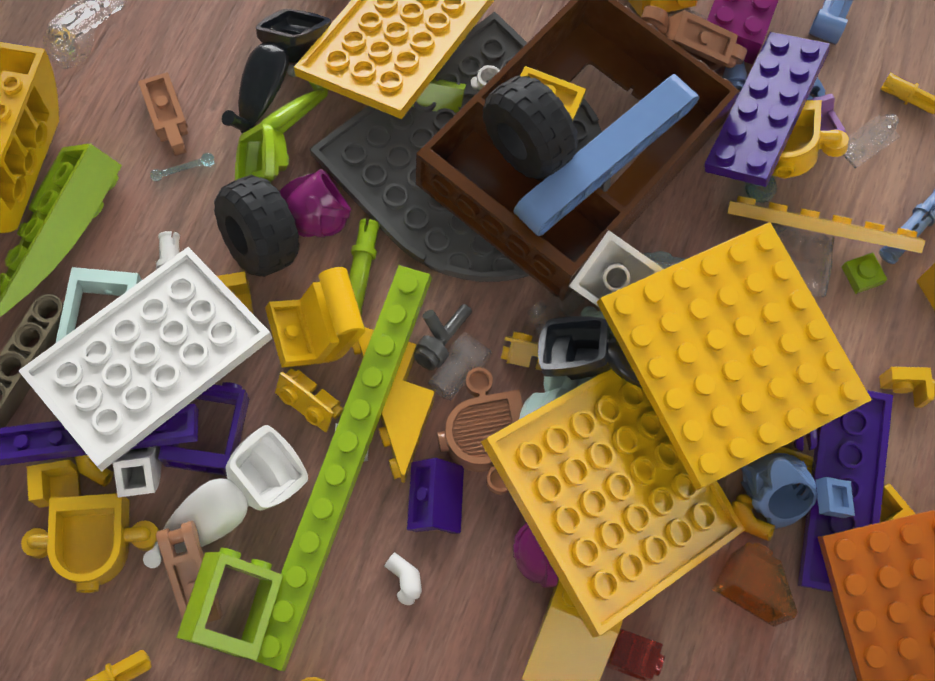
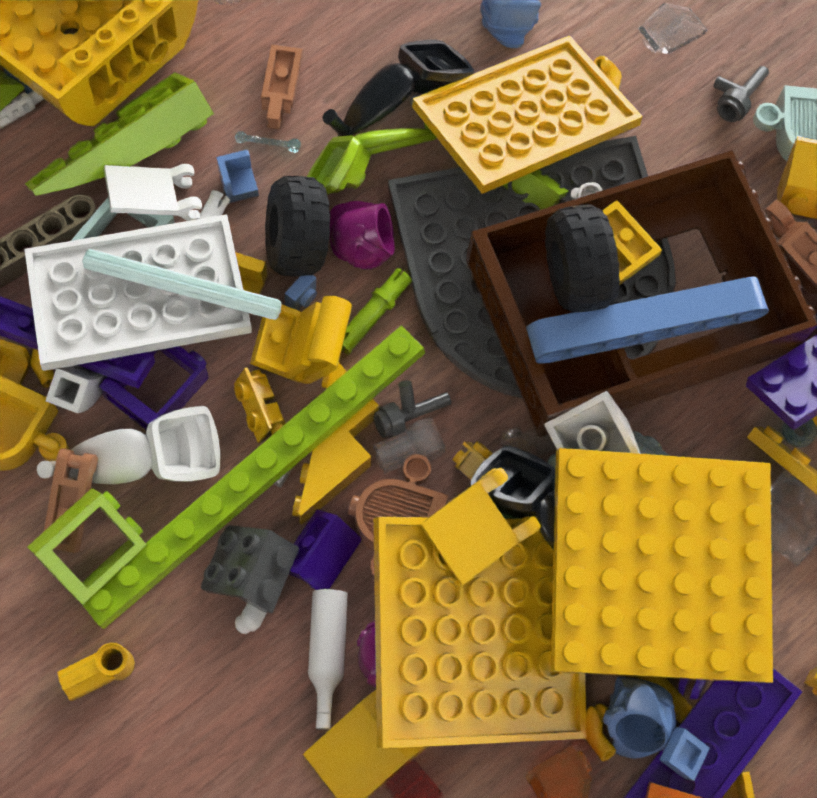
camera: 30 degrees right, 0 degrees up
(104, 261) = (150, 191): none -> white flag
(173, 210) = (237, 176): none -> medium blue panel
(184, 327) = (182, 284): none -> light aqua axle
(290, 282) = (301, 292): none -> medium blue plate
(383, 543) = (250, 566): none -> dark grey bracket
(491, 577) = (327, 649): none -> white piece
(567, 406) = (473, 531): none -> yellow flag

